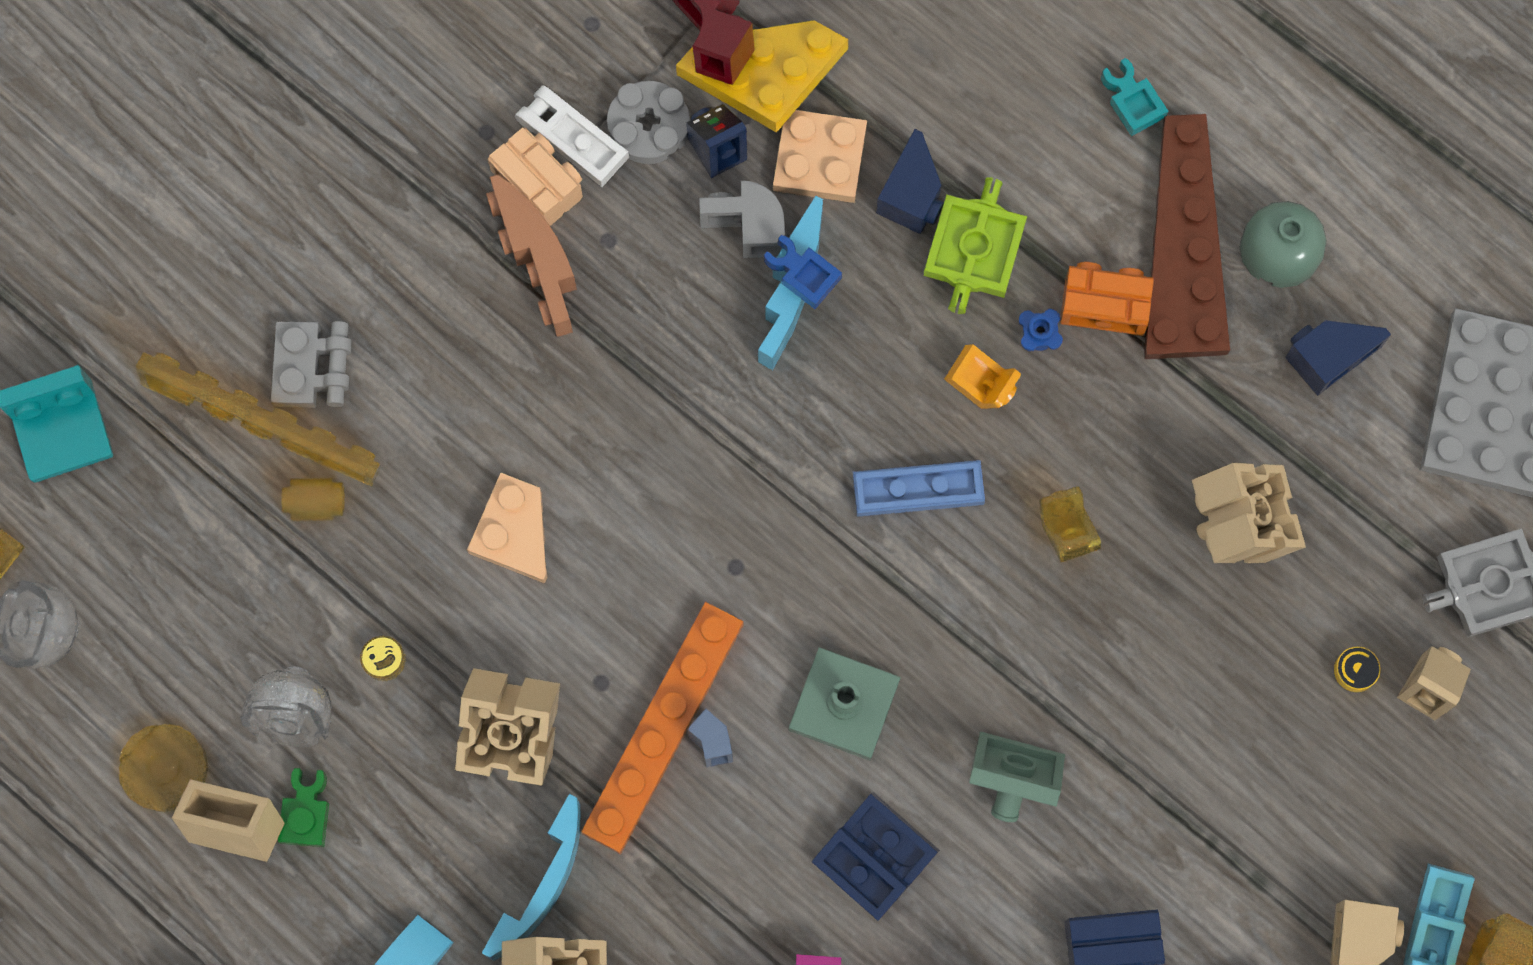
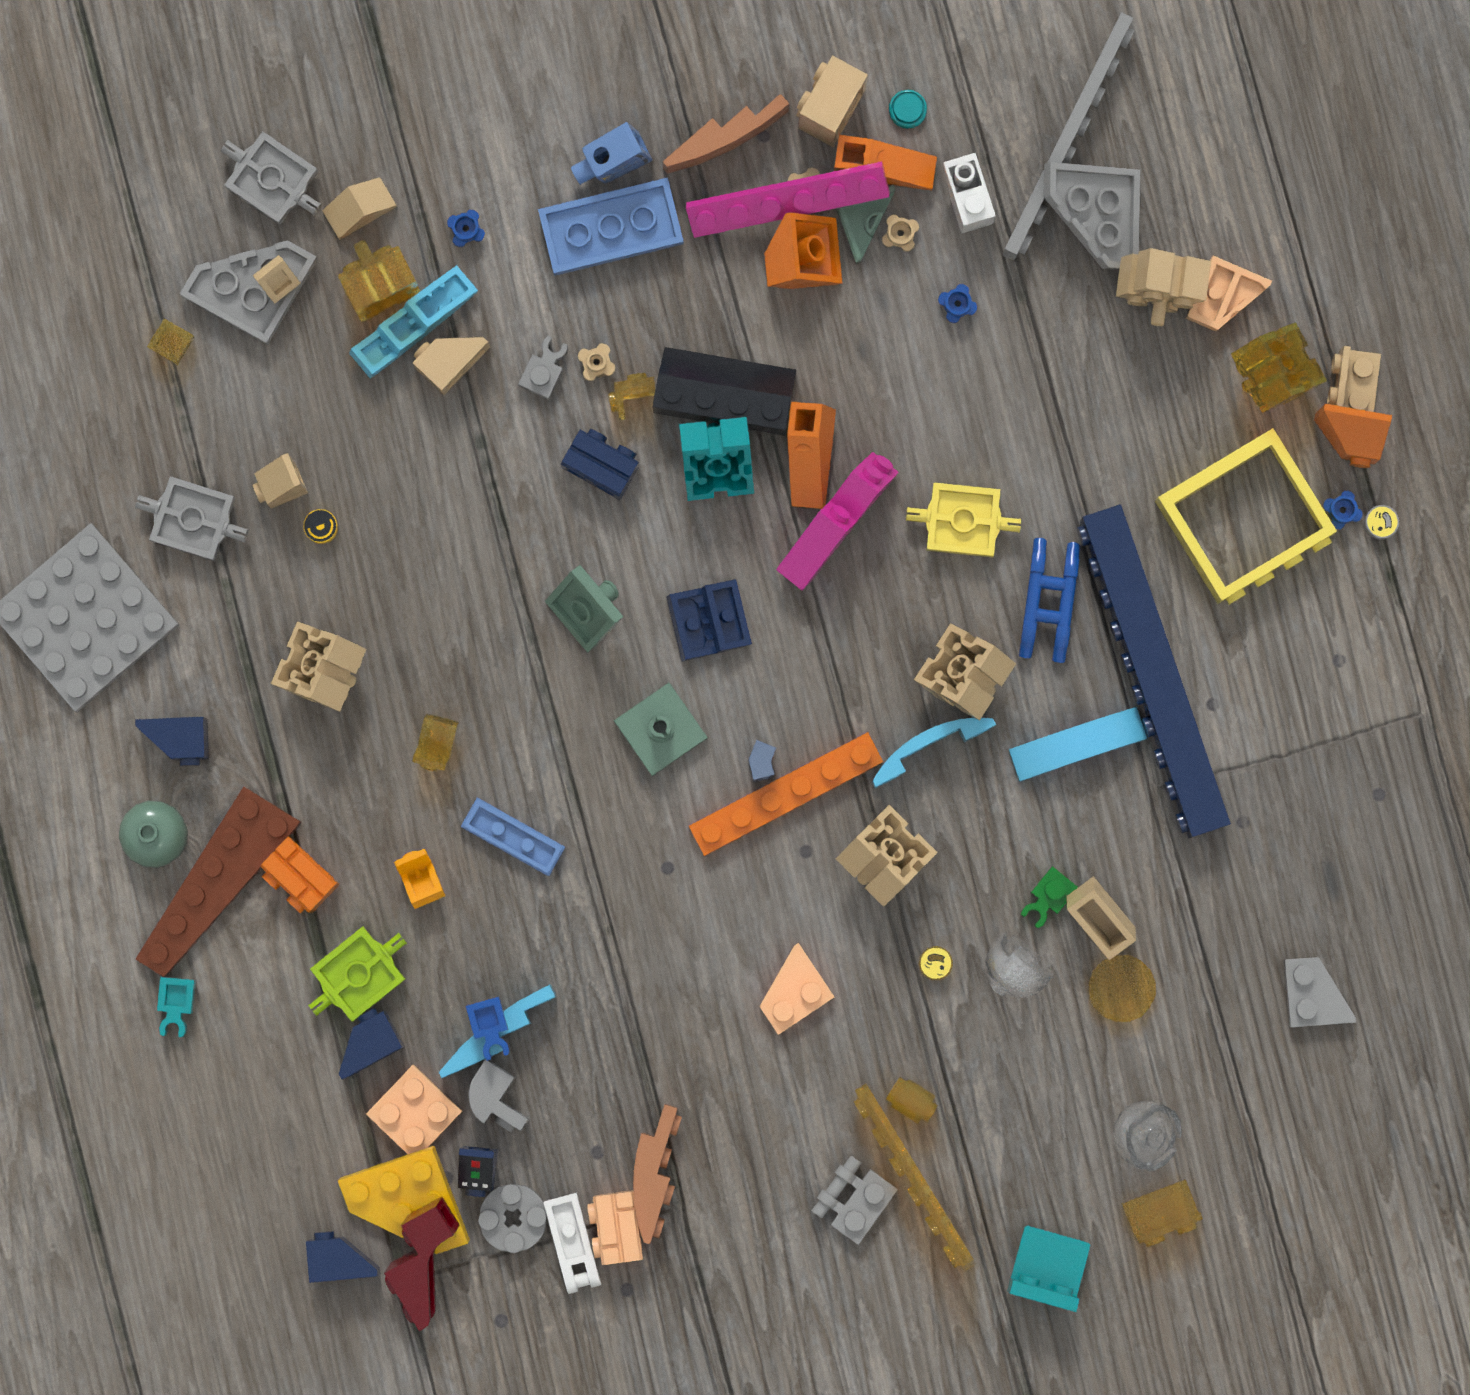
camera: 145 degrees left, 10 degrees up
(1040, 341) = (366, 884): blue plate -> none

